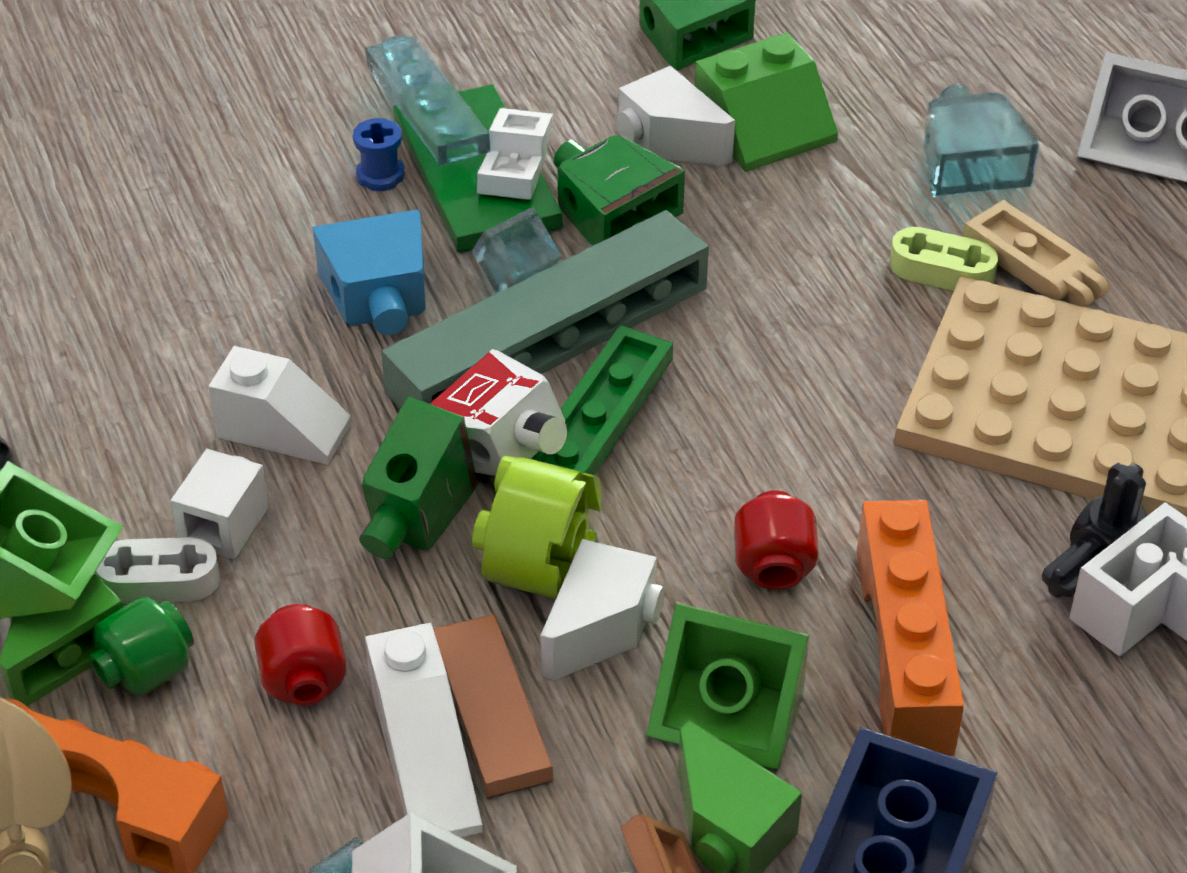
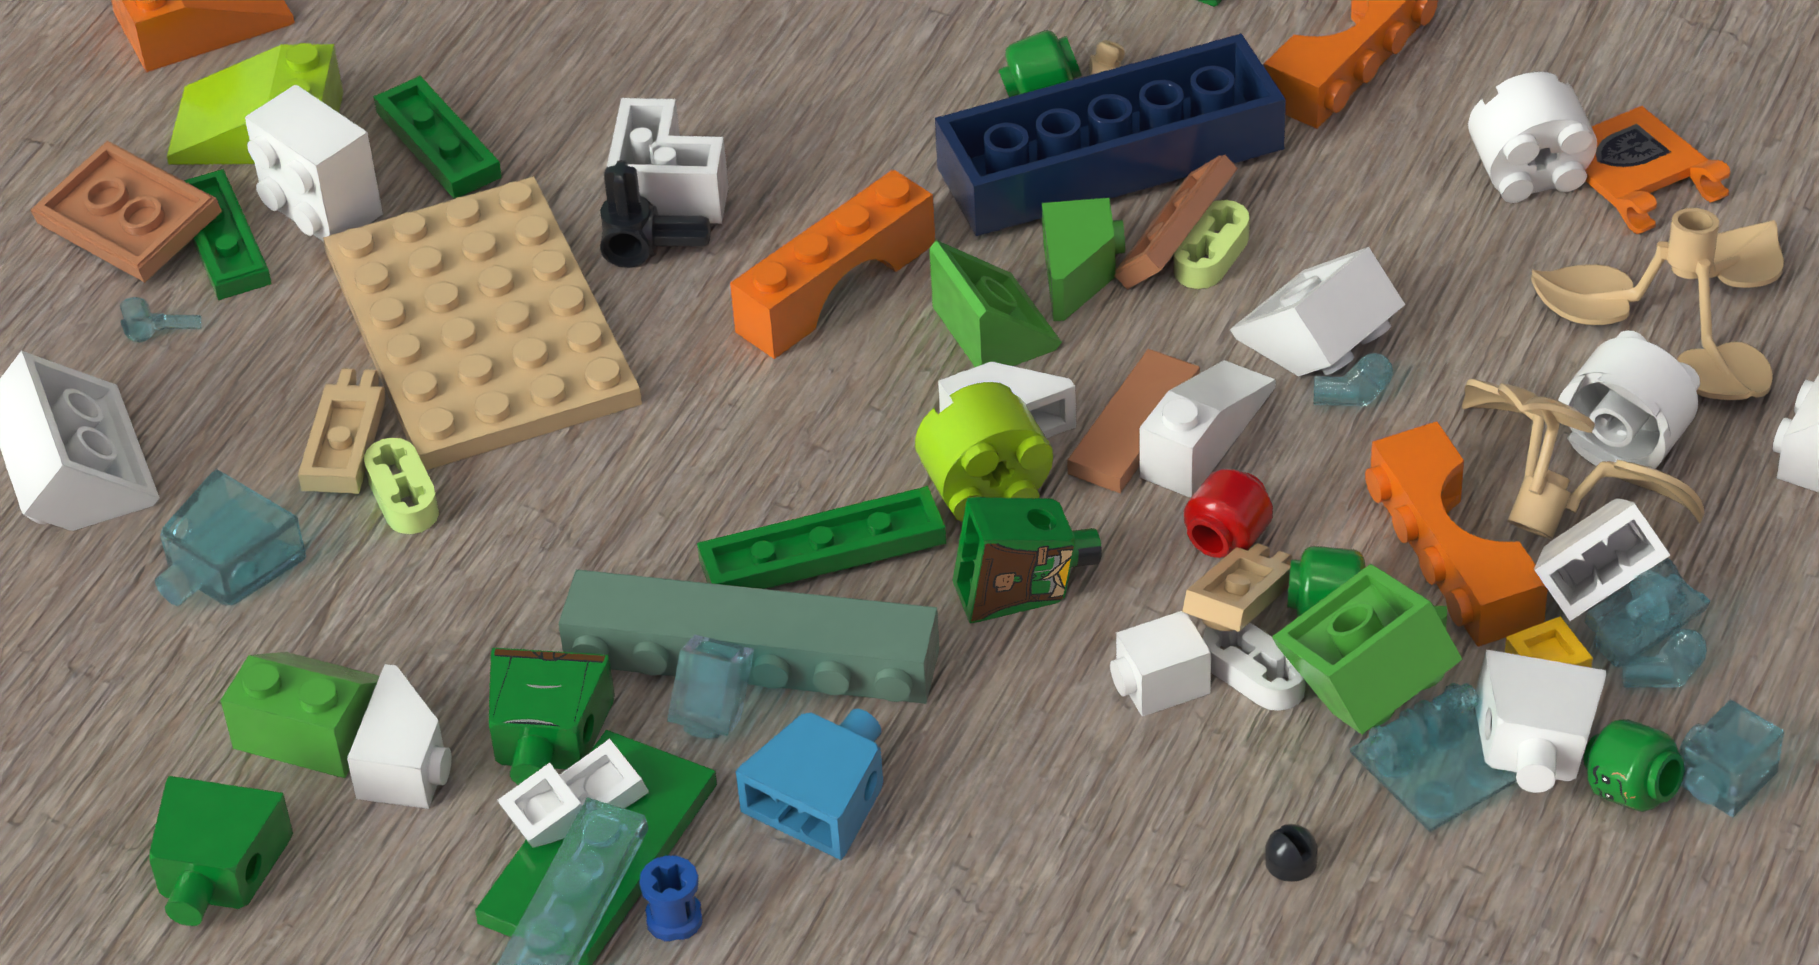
camera: 130 degrees left, 0 degrees up
(213, 587) = (1238, 588): none -> tan hinge
(275, 407) = (1042, 720): white slope -> none
(505, 411) = (908, 552): white torso -> none
(775, 540) = (834, 365): red head -> none

